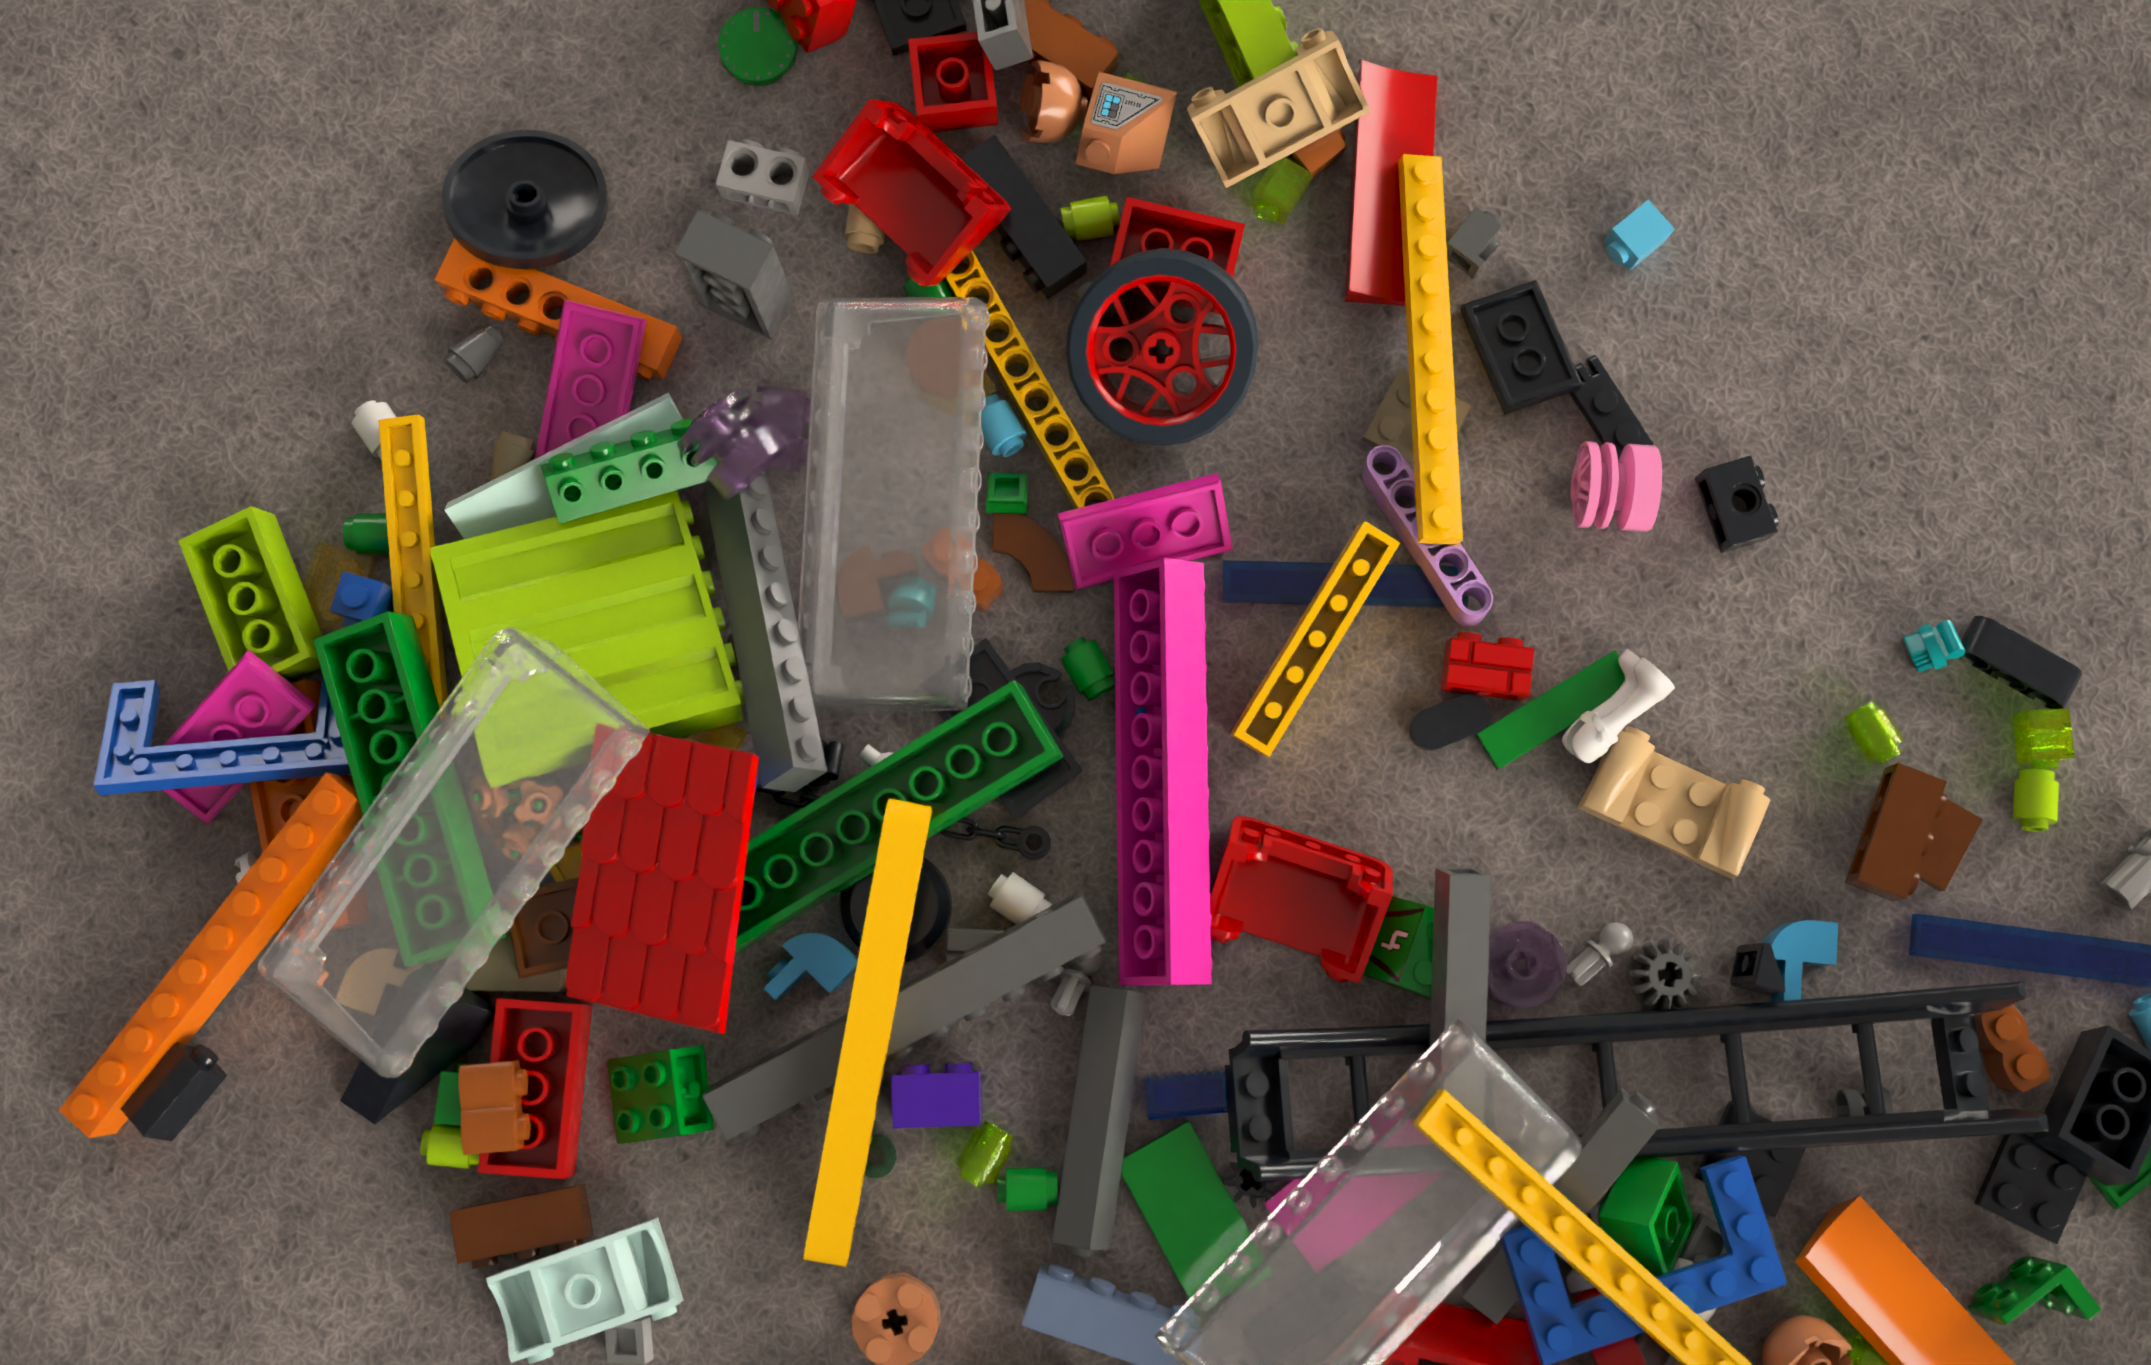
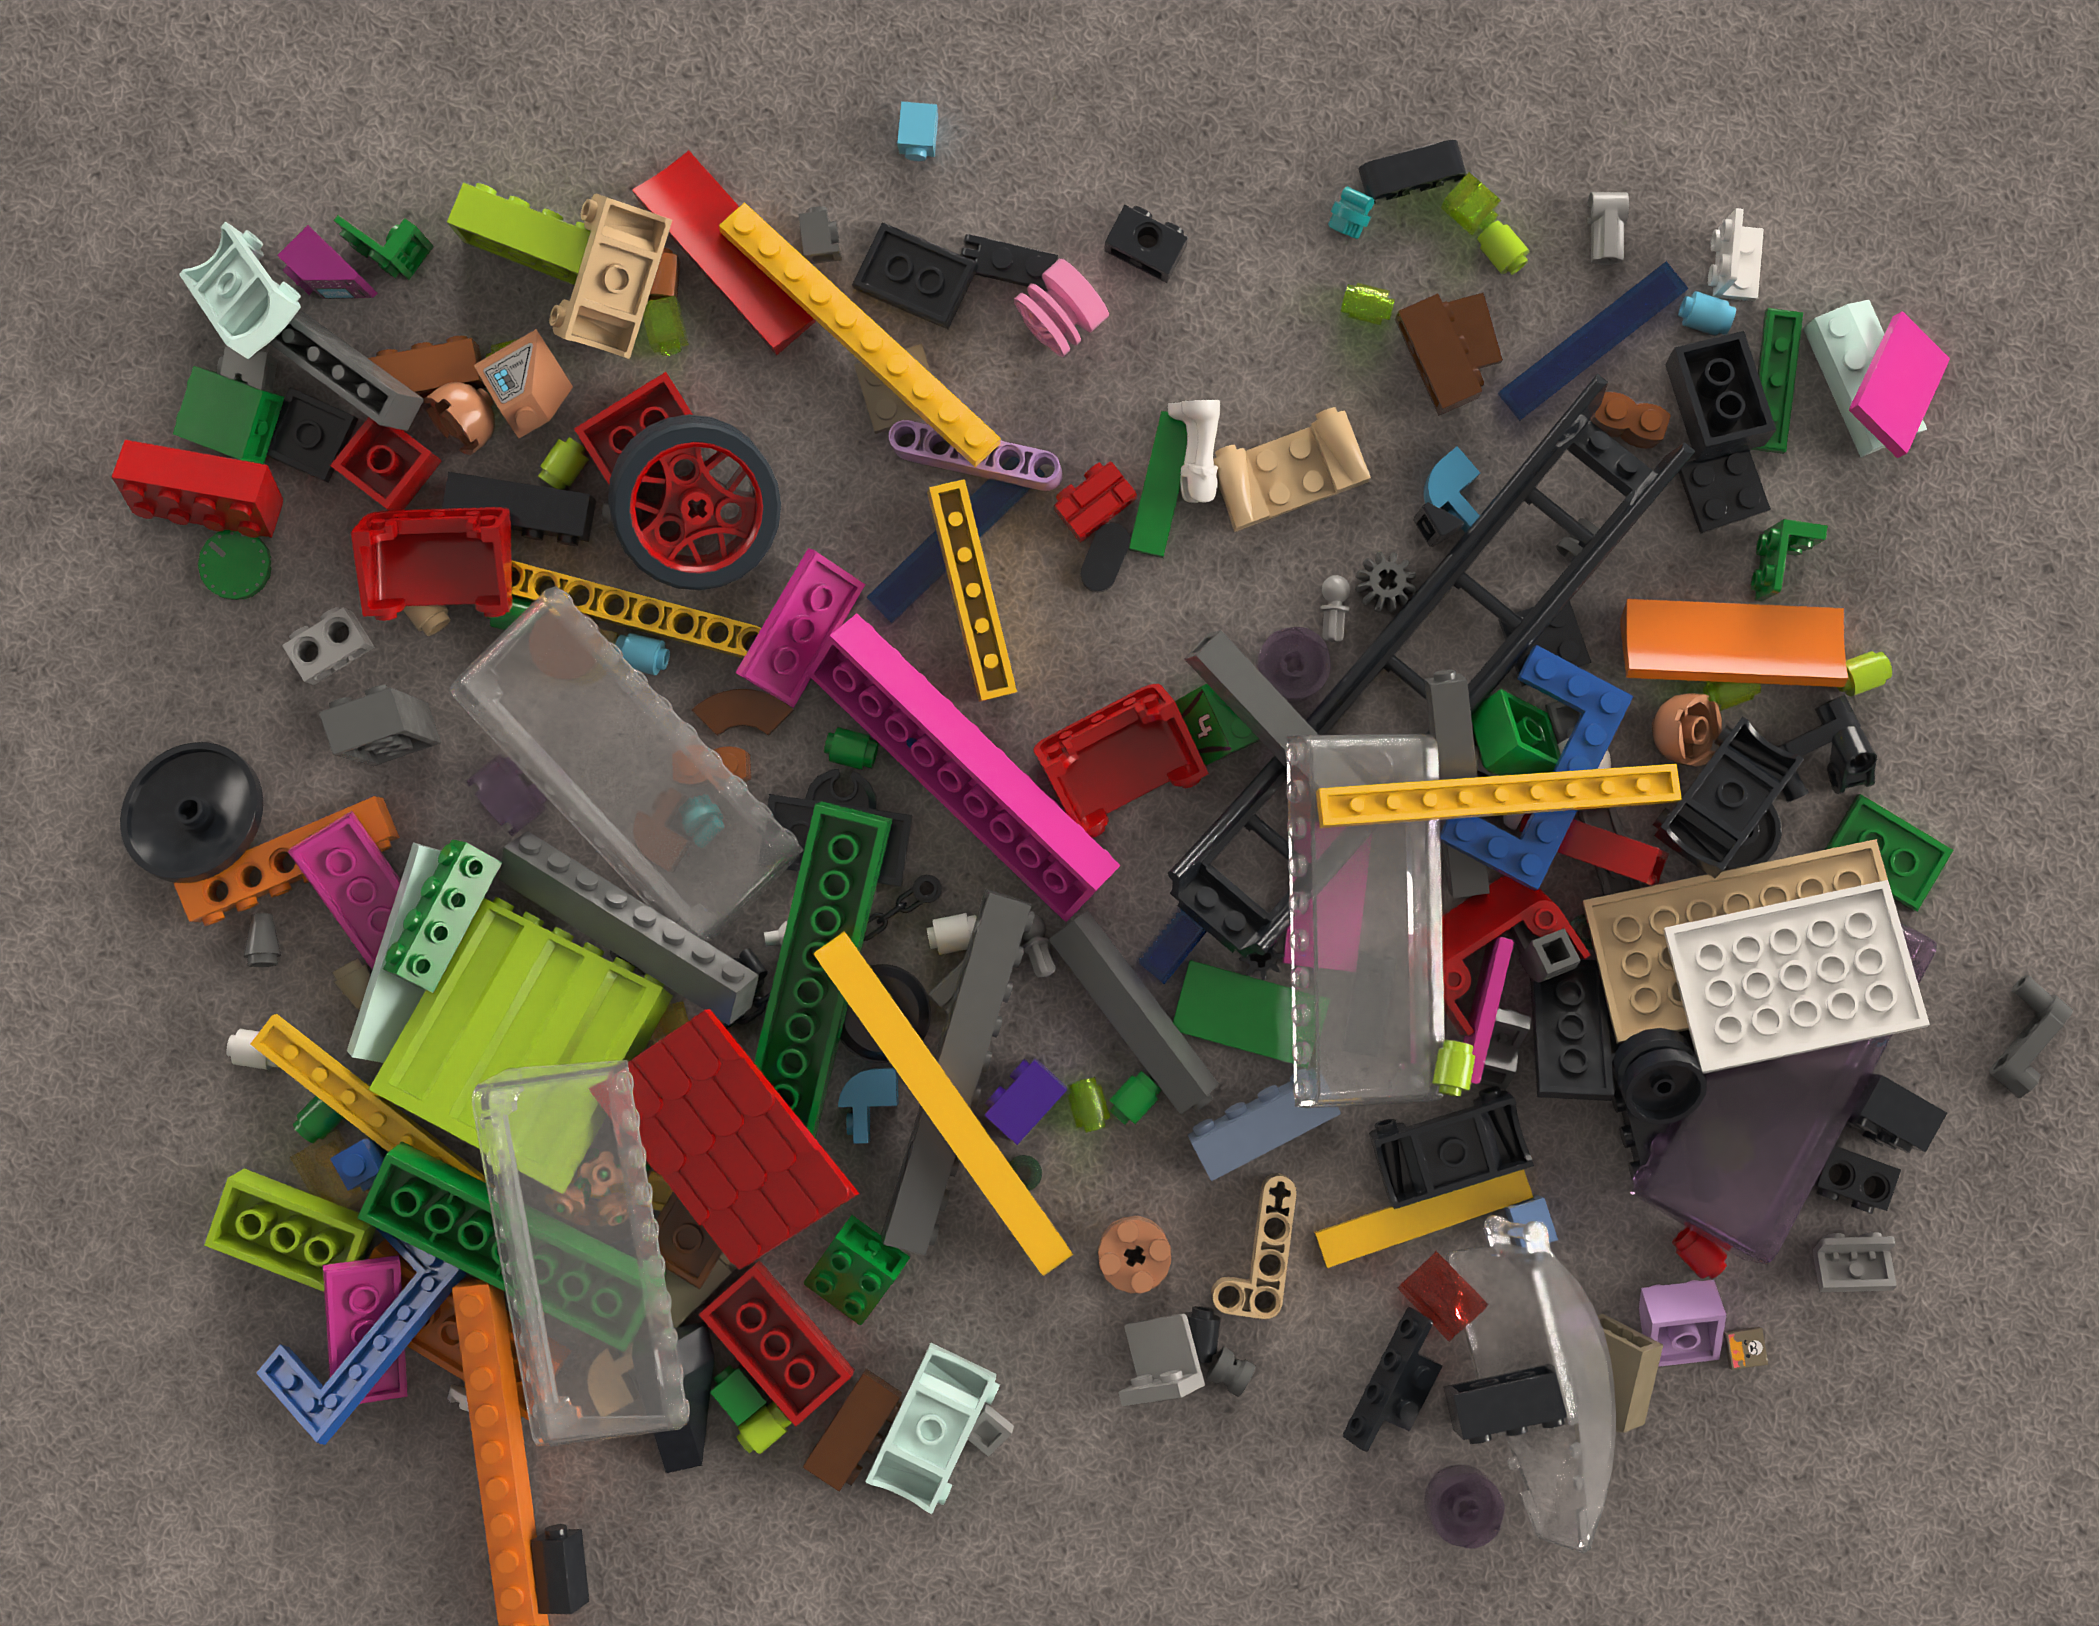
camera: 40 degrees left, 5 degrees up
(492, 1107) = (764, 1378): dark orange brick -> none
(733, 443) = (491, 834): clear purple wheel -> none
(1006, 493) = (689, 690): green tile -> none

